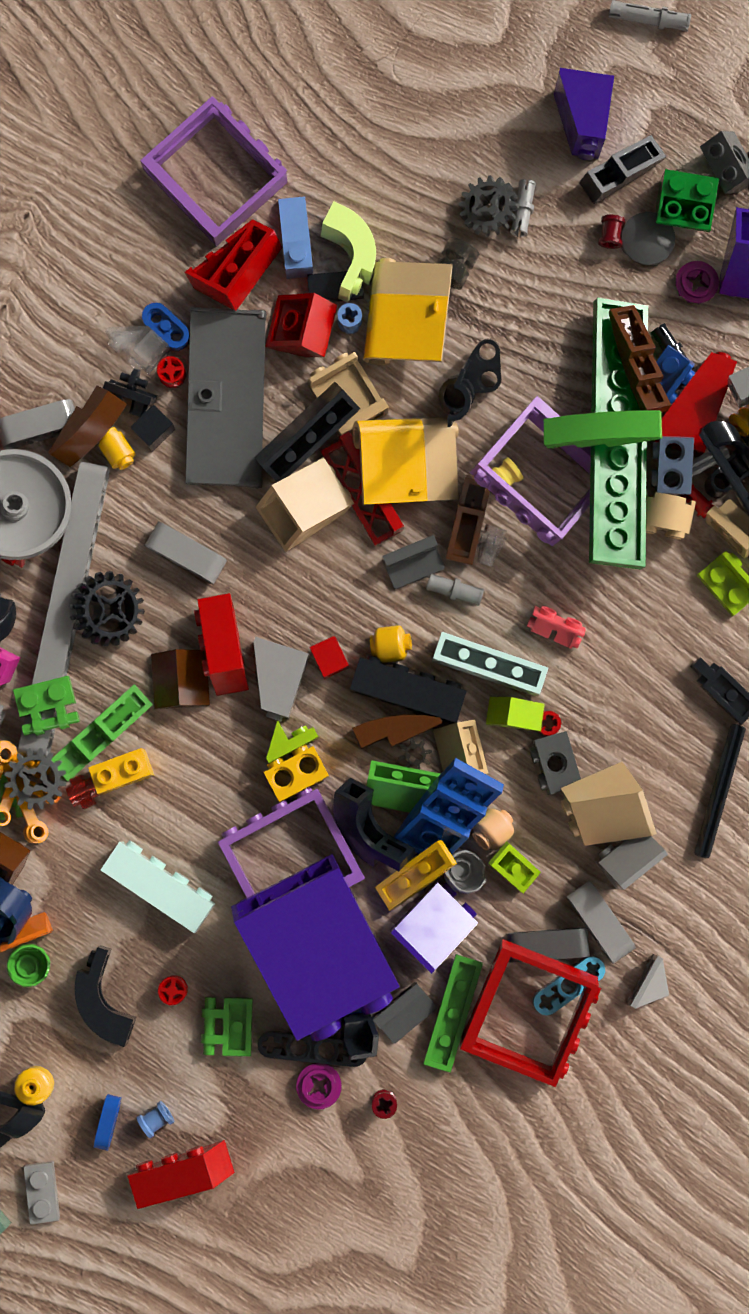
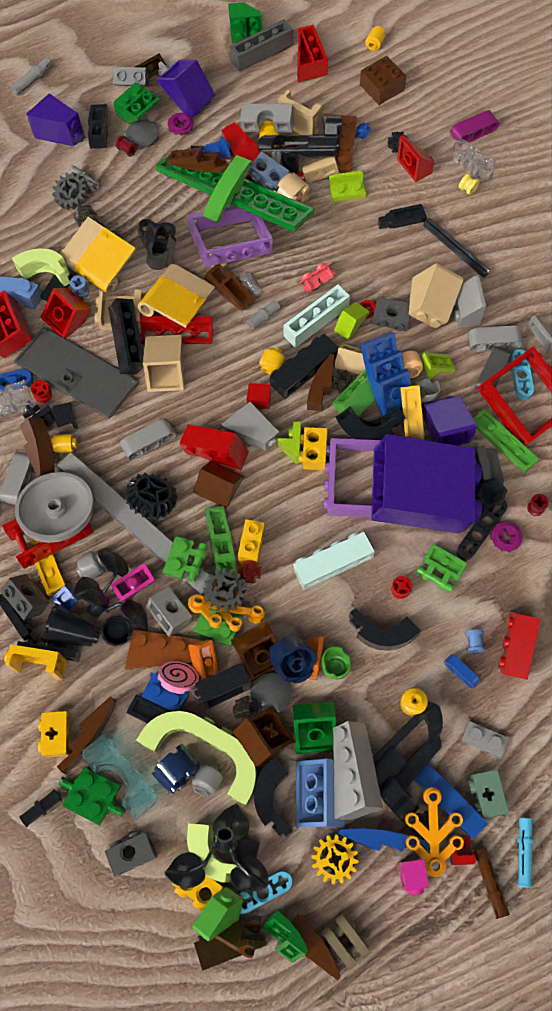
camera: 50 degrees left, 15 degrees down
(413, 562) = (233, 327): dark grey panel -> none

